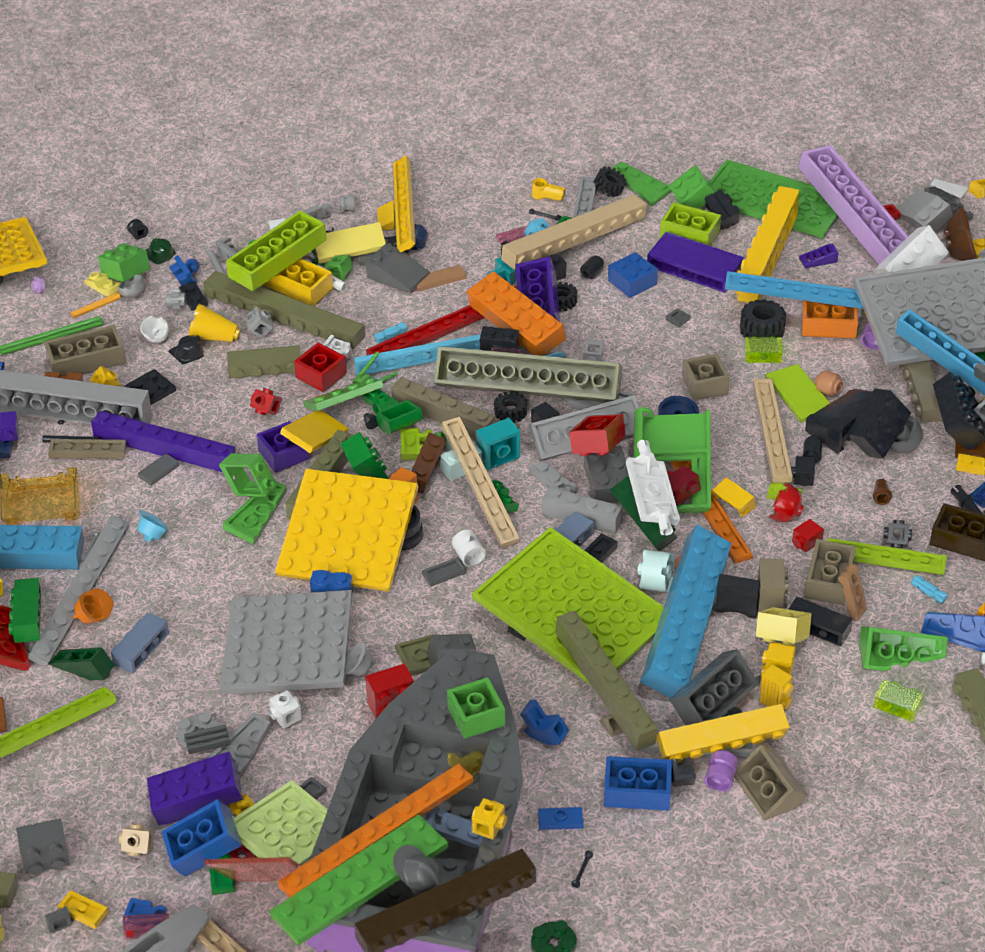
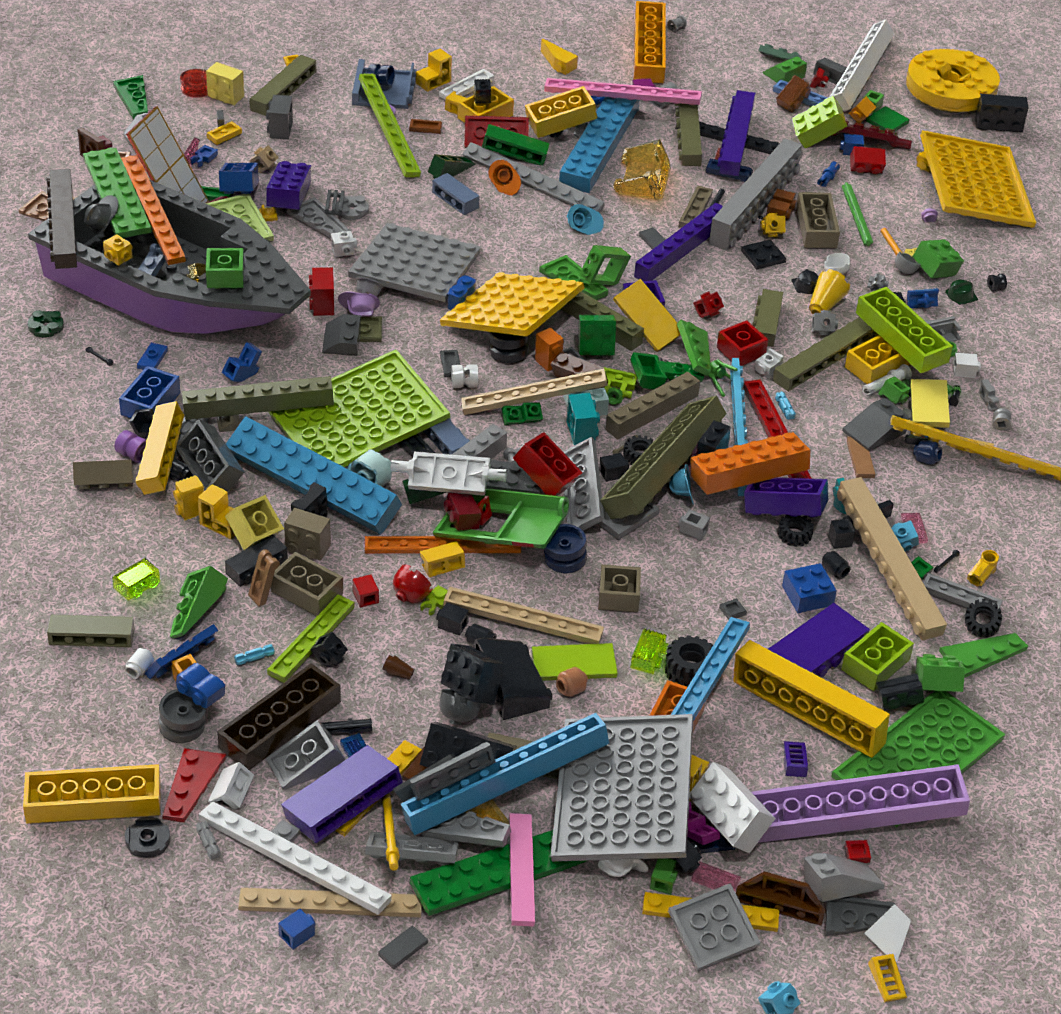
camera: 105 degrees right, 0 degrees up
(393, 654) = (359, 303): none -> lavender piece

